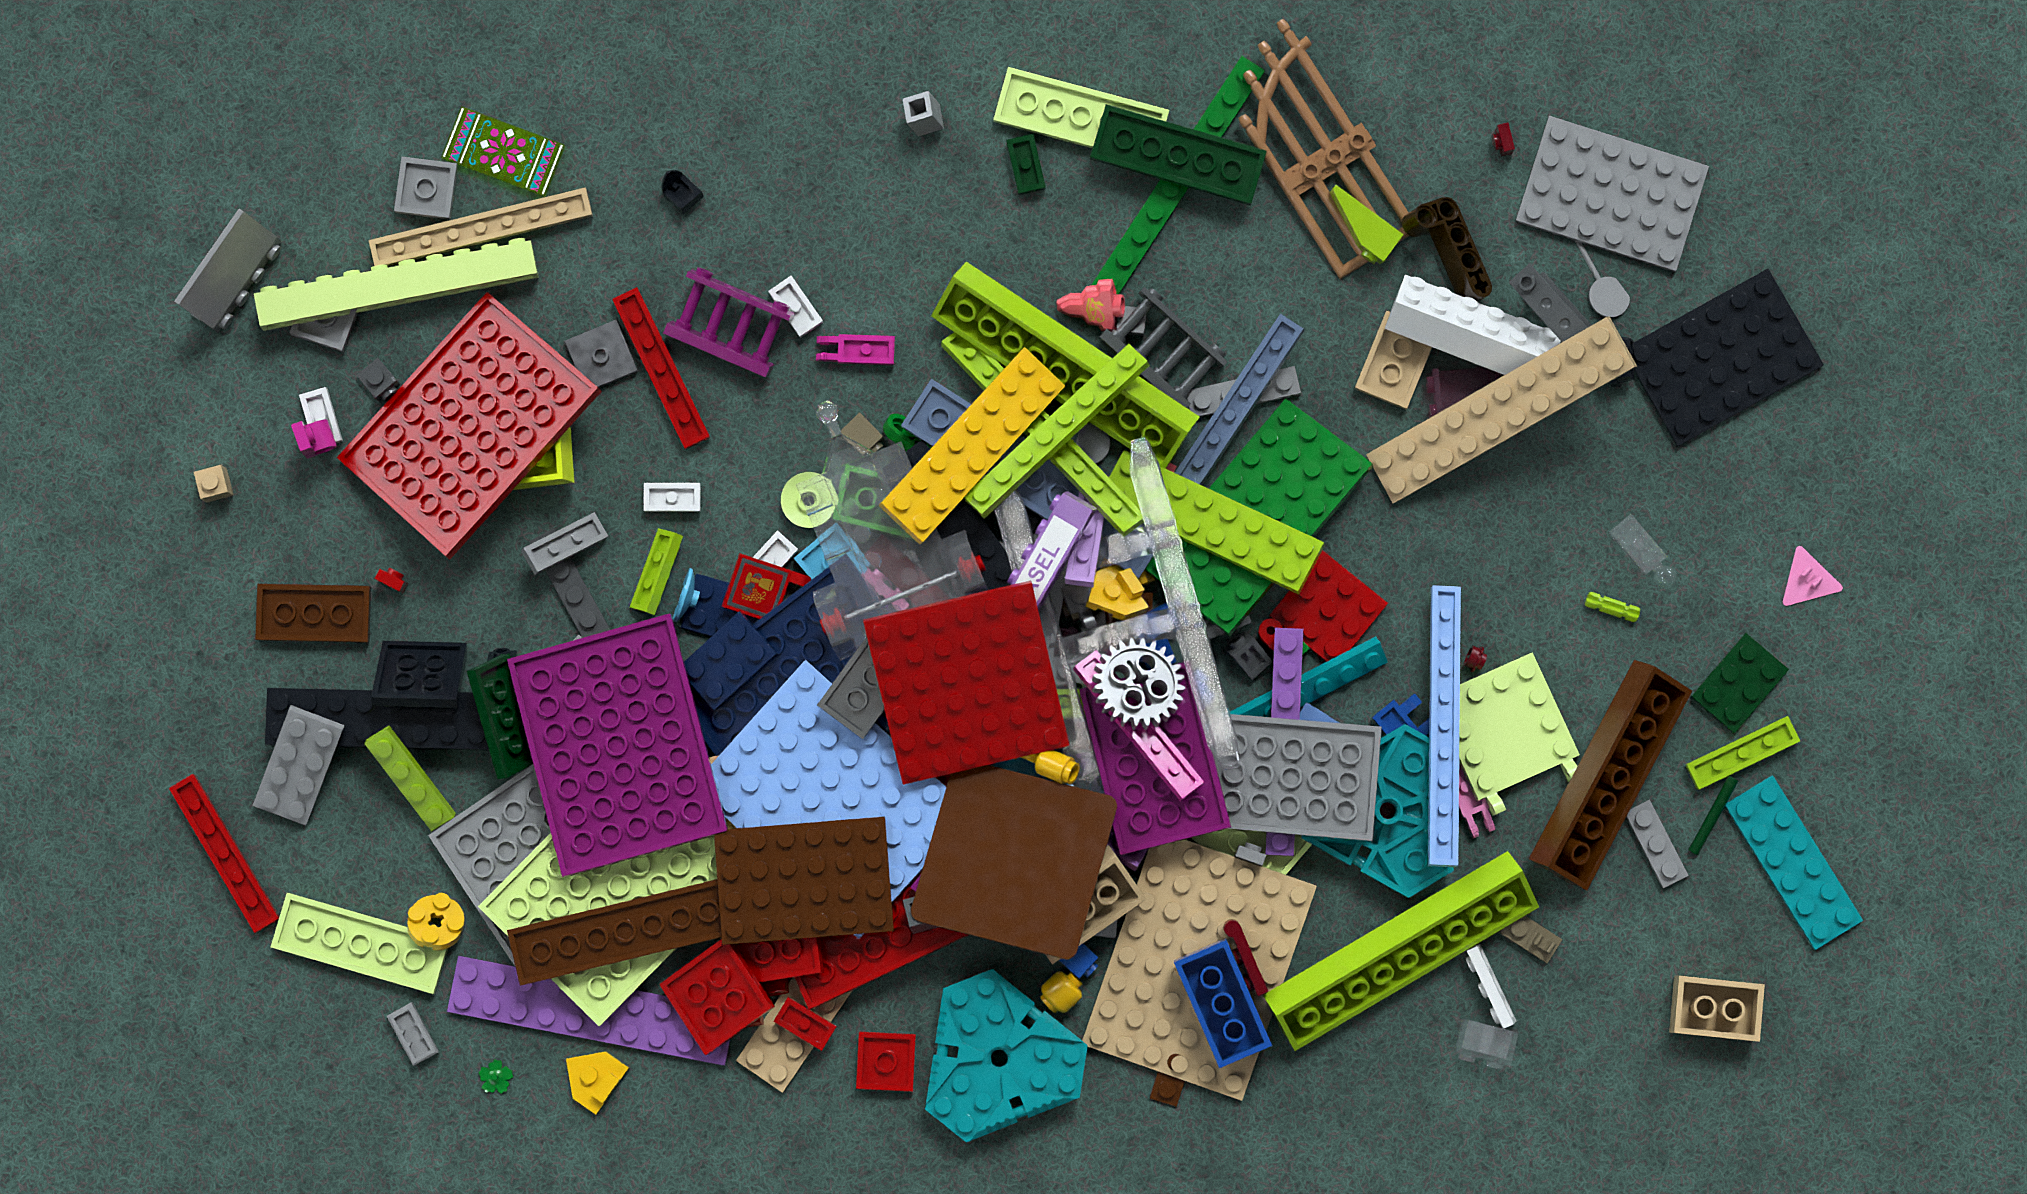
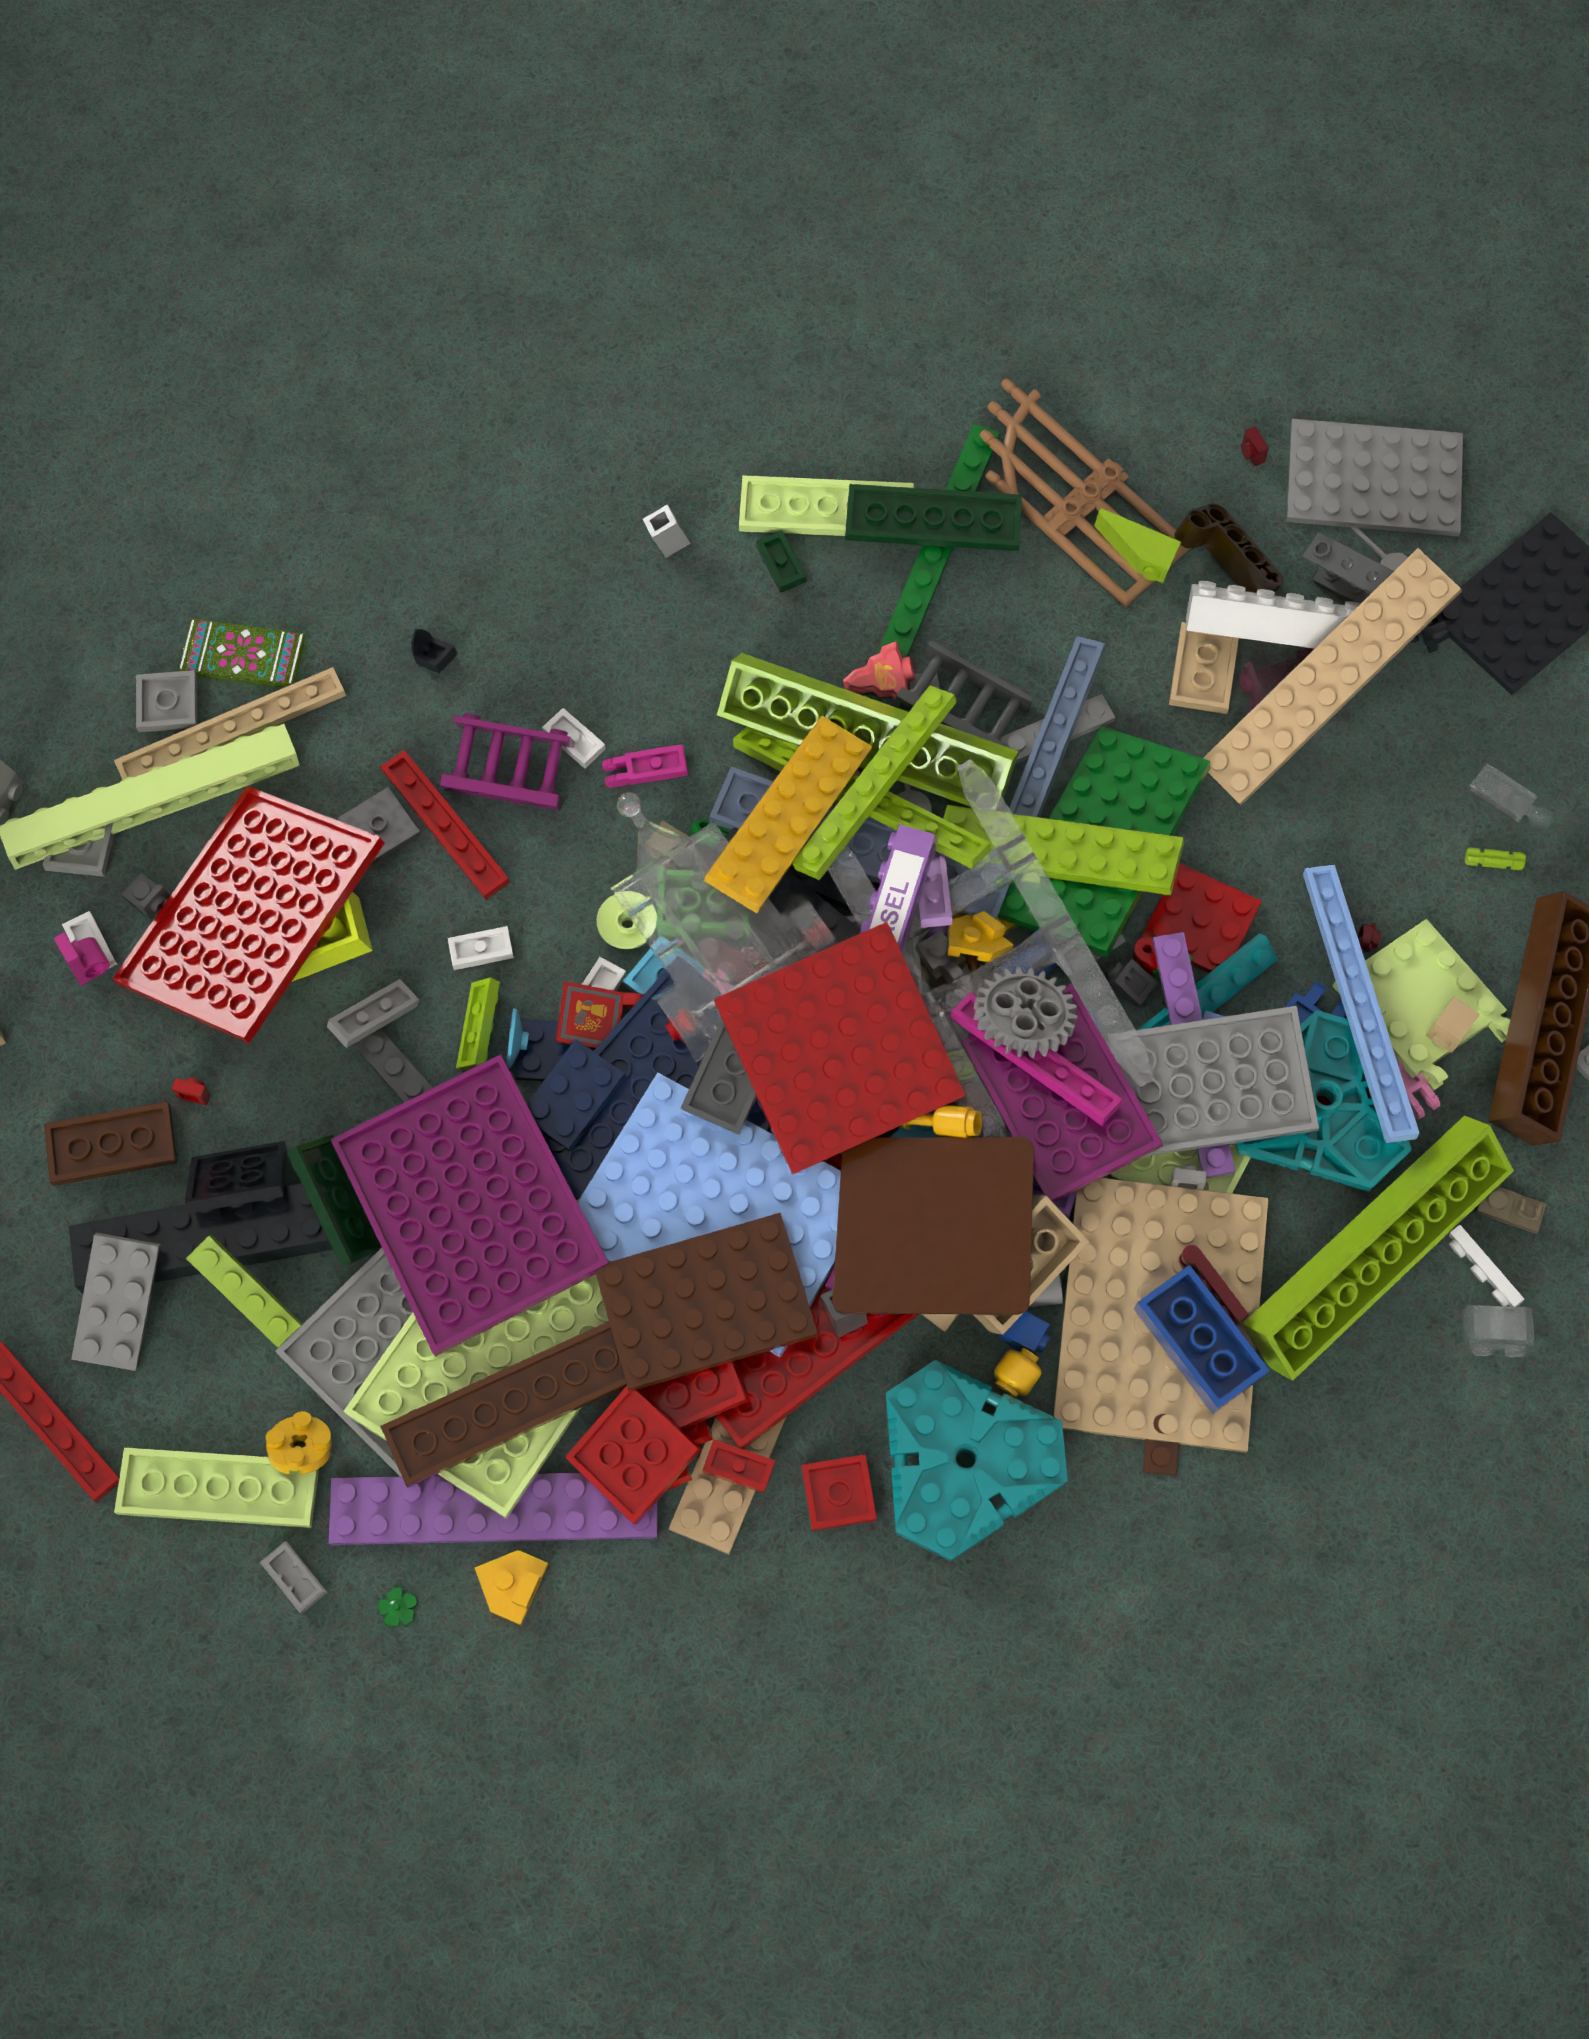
camera: 15 degrees left, 15 degrees down
(1522, 764) = (1452, 1025): none -> tan brick

